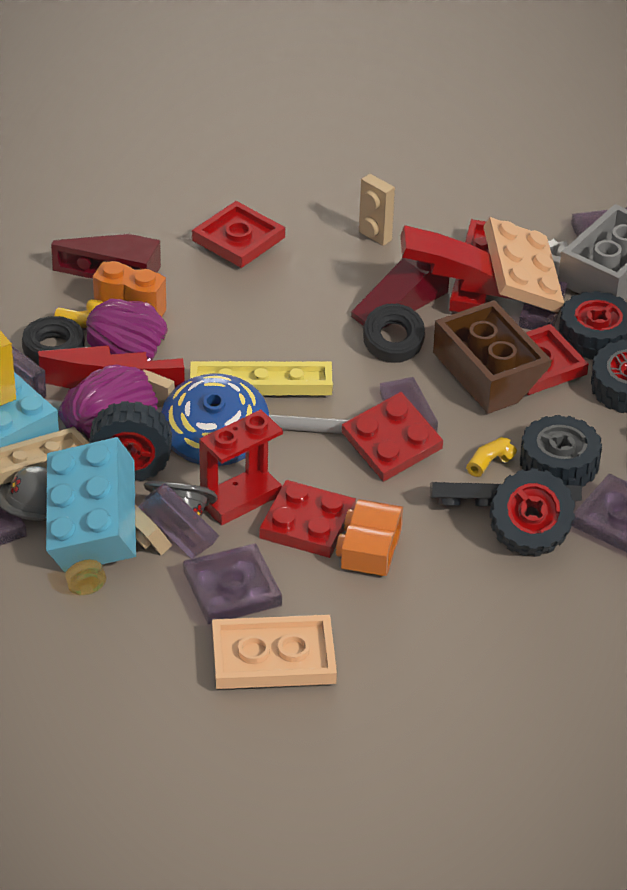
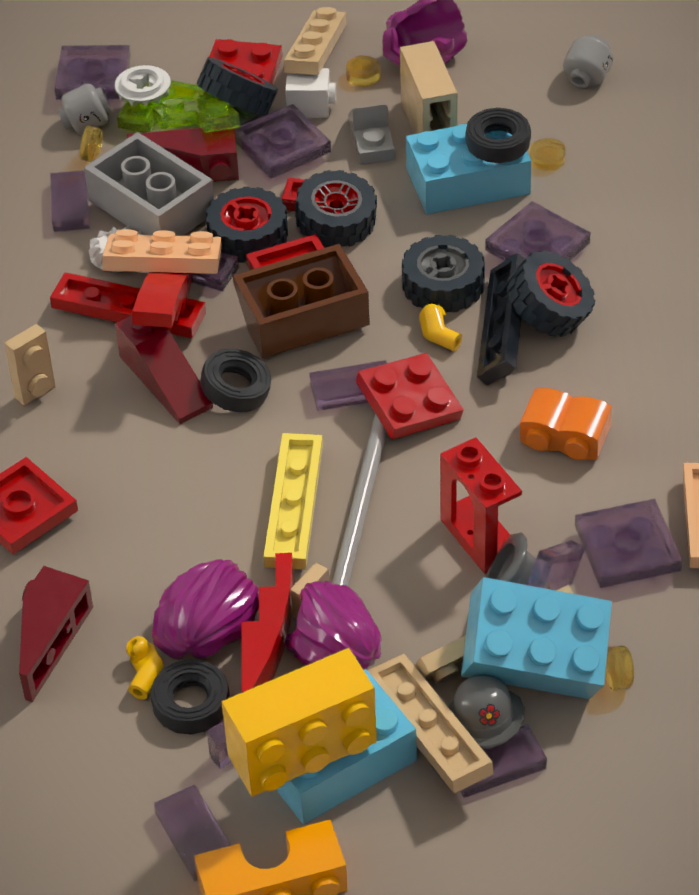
camera: 80 degrees left, 5 degrees up
(122, 282) = (123, 608): orange brick -> none
(140, 430) = (422, 604): black wheel -> none
(193, 417) = (365, 558): blue dish -> none
(306, 518) = (537, 473): red plate -> none

